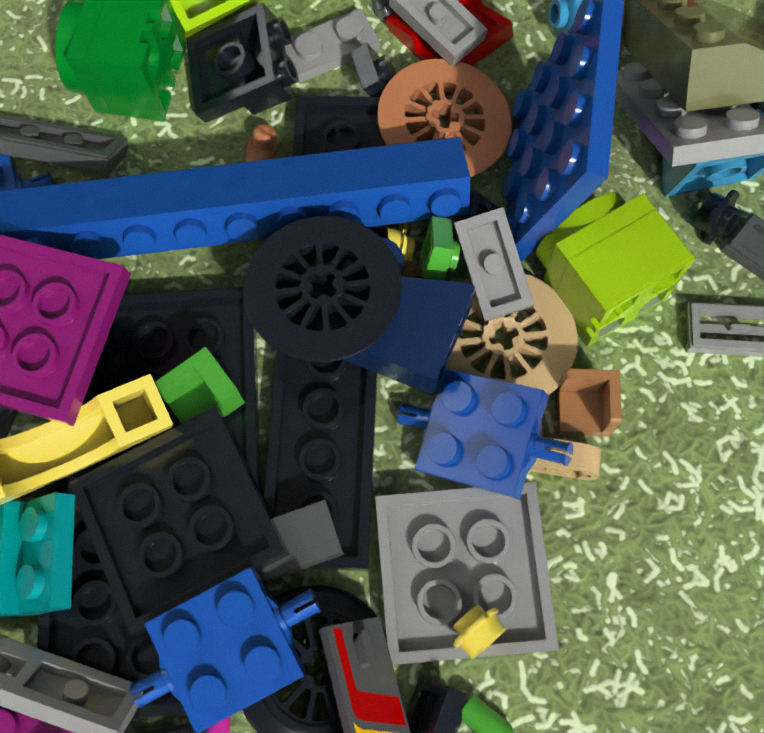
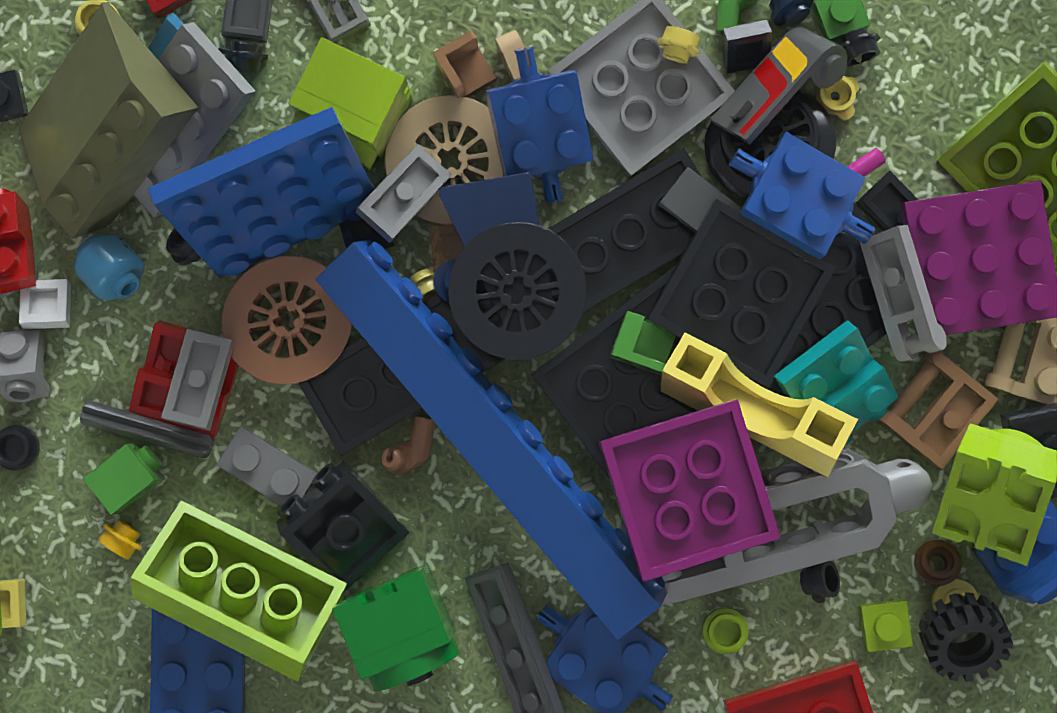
camera: 125 degrees left, 15 degrees up
(372, 70) = (279, 404): black plate -> none
(439, 250) = (419, 242): bright green plate -> none

